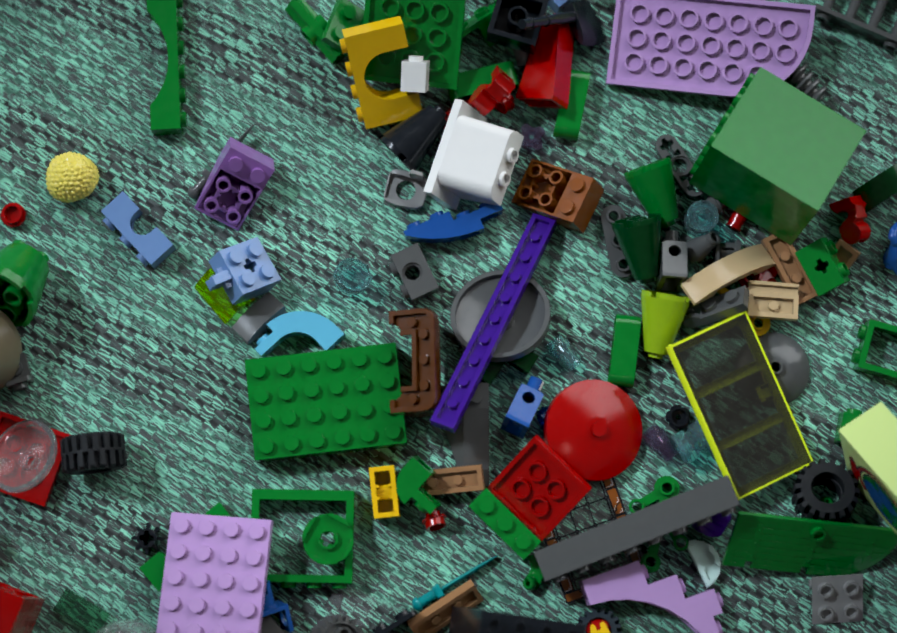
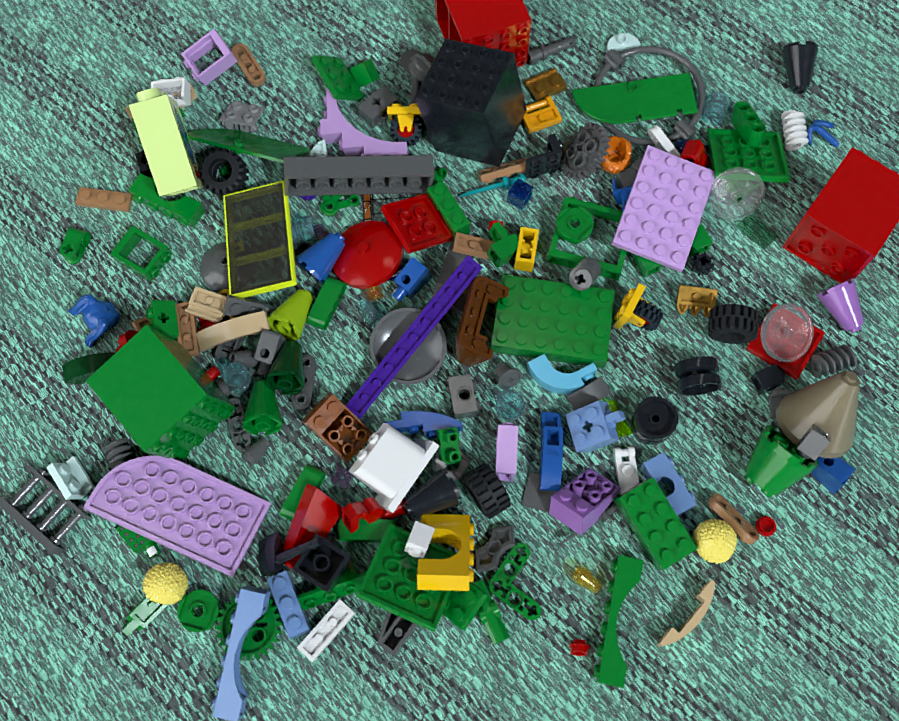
camera: 160 degrees left, 10 degrees down
(36, 399) = (768, 379): none -> black brick
(53, 211) = (730, 515): none -> medium nougat plate
(101, 58) = (705, 597): none -> tan slope
(126, 371) = (697, 376): none -> black wheel
(145, 176) = (655, 524): none -> green brick
(147, 487) = (697, 298): none -> pearl gold plate
(159, 292) = (664, 423): none -> black wheel
(189, 232) = (626, 471): none -> white plate
(204, 20) = (579, 647): none -> red plate
(213, 96) = (583, 577): none -> clear yellow cone
(221, 442) = (637, 311): none -> plate
(288, 233) = (551, 451): none -> blue slope
(289, 186) = (537, 498): none -> dark grey piece
(298, 467) = (584, 274): none -> dark grey piece
(304, 70) = (508, 579): none -> green beam
(322, 113) = (489, 555): none -> dark grey tile
(341, 212) = (506, 451): none -> lavender window
(352, 158) = (487, 490): none -> black tyre
(366, 314) = (507, 376): none -> dark grey piece
(413, 200) = (448, 445): none -> green hips
(414, 575) = (520, 194): none -> clear blue brick
(566, 379) = (374, 293): none -> clear orange bush
(646, 138) = (255, 452): none -> dark grey cone
(650, 403) = (322, 256): none -> blue cone
(852, 45) = (71, 478): none -> light aqua bracket

